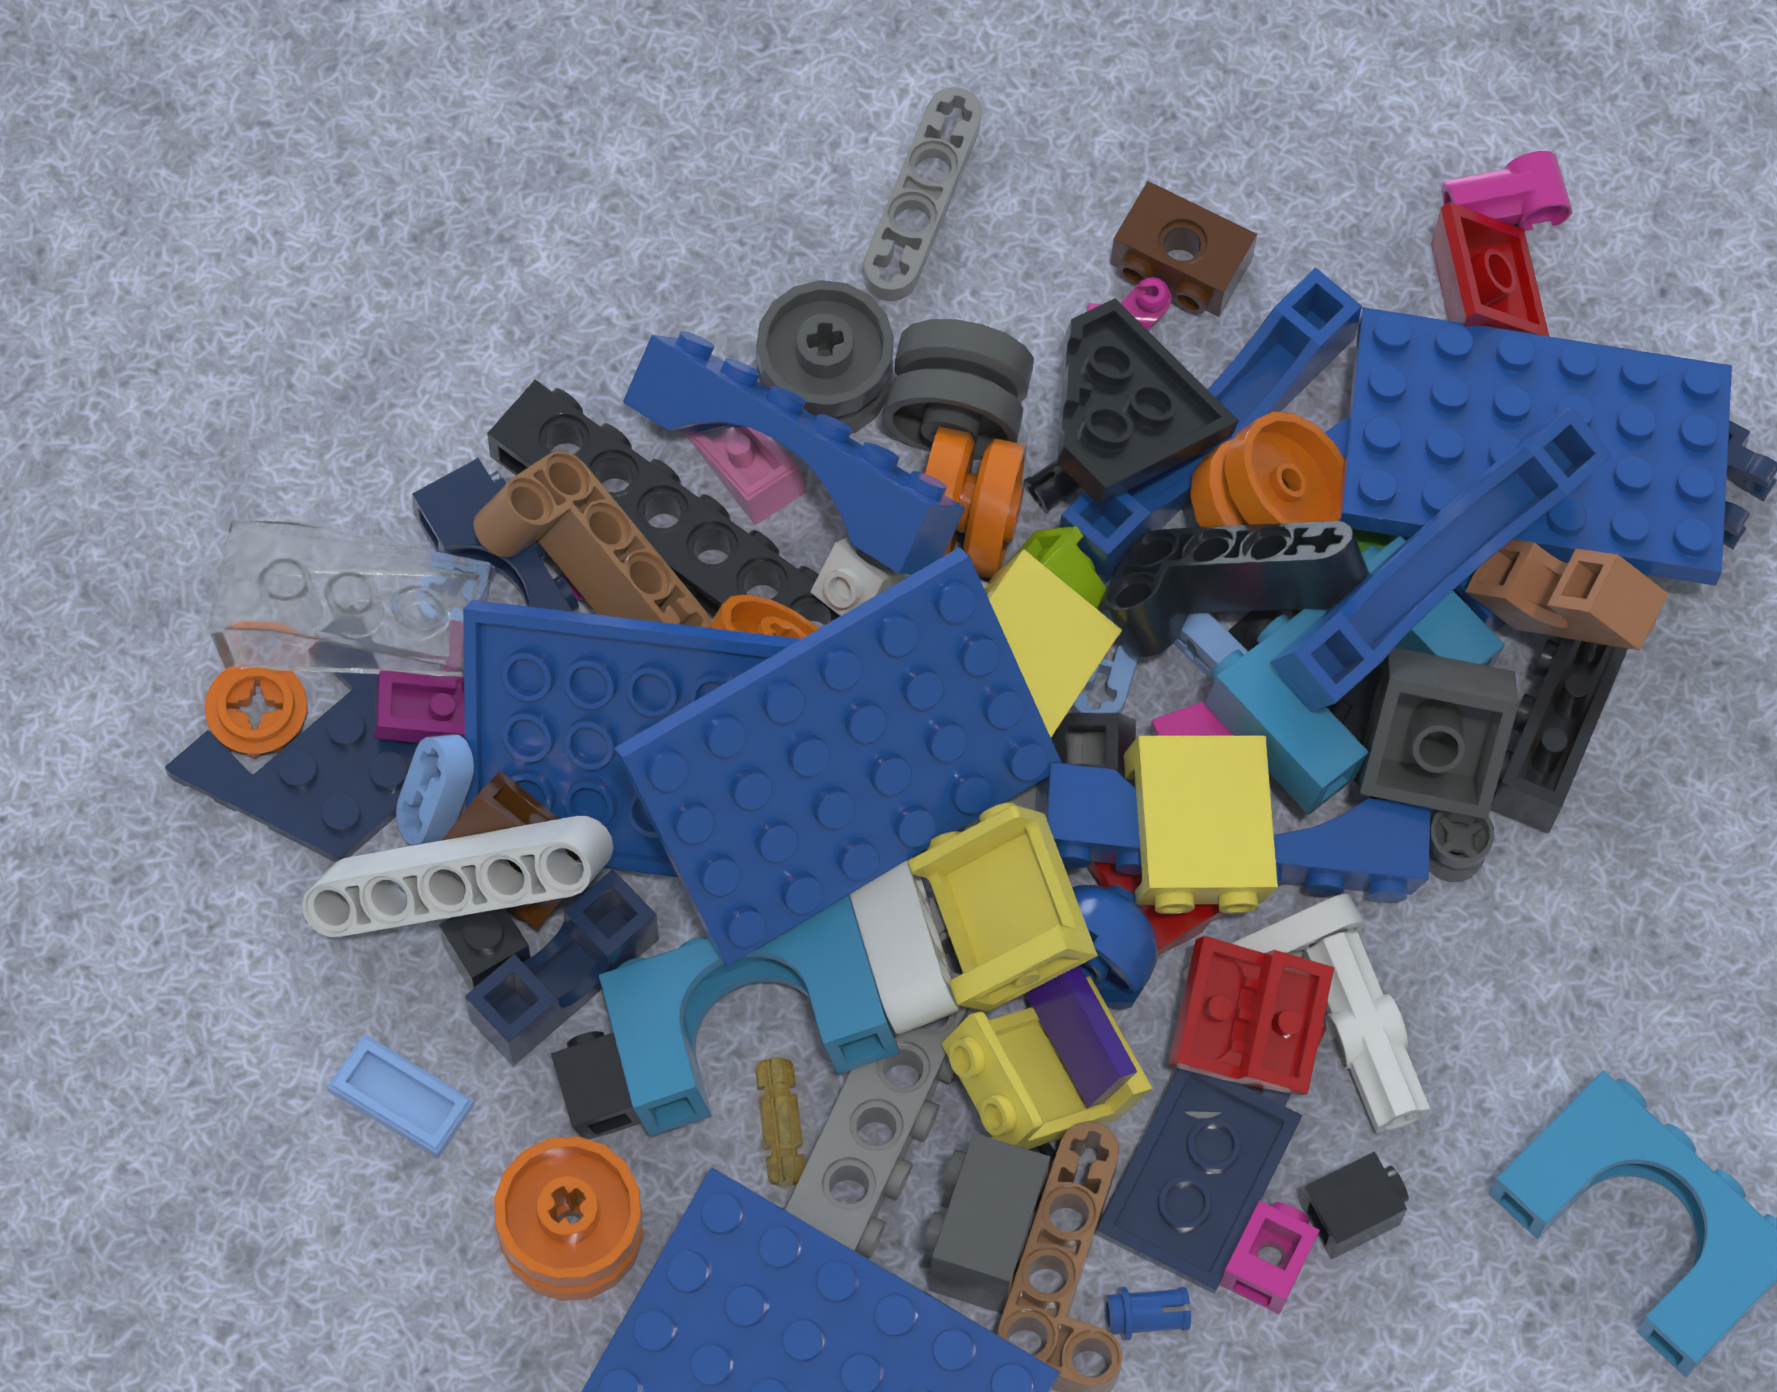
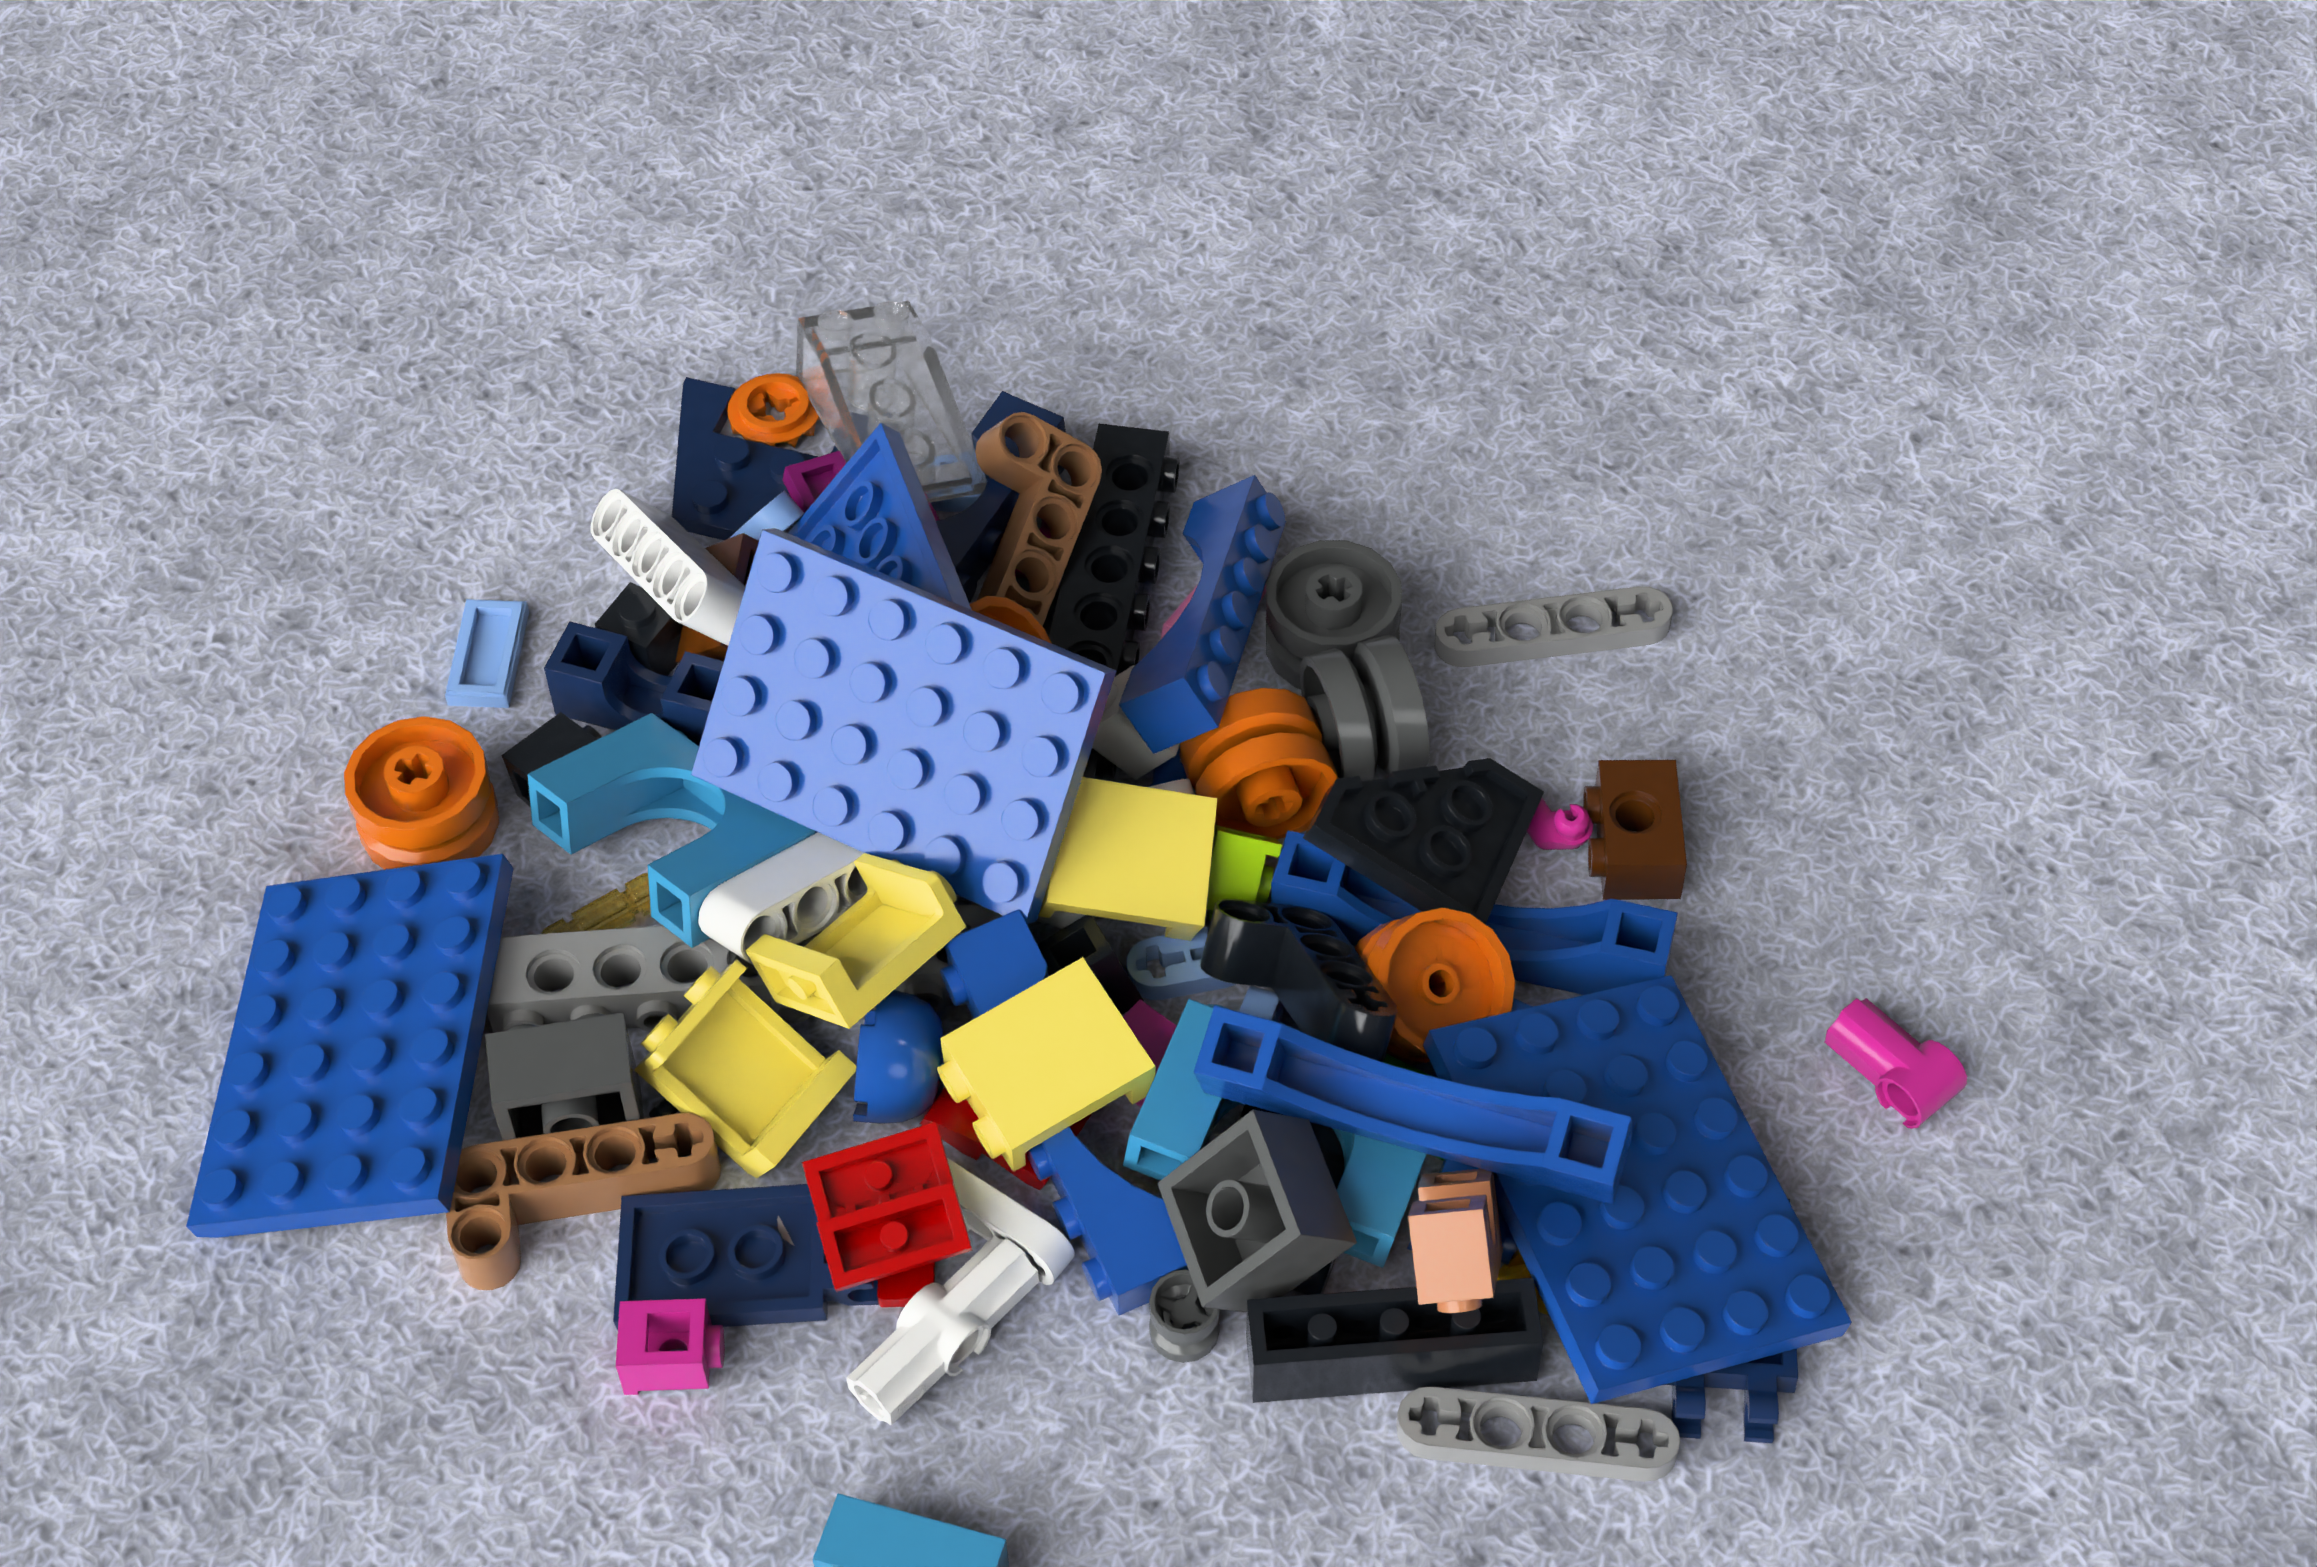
camera: 65 degrees right, 15 degrees down
(1082, 1036) = (792, 1081): dark purple tile -> none
(1143, 1311) = (556, 1263): blue pin -> none
(1355, 1204) = (756, 1395): black brick -> none
(1486, 272) = (1797, 1077): red slope -> none
(1690, 644) = (1537, 1421): none -> light grey beam

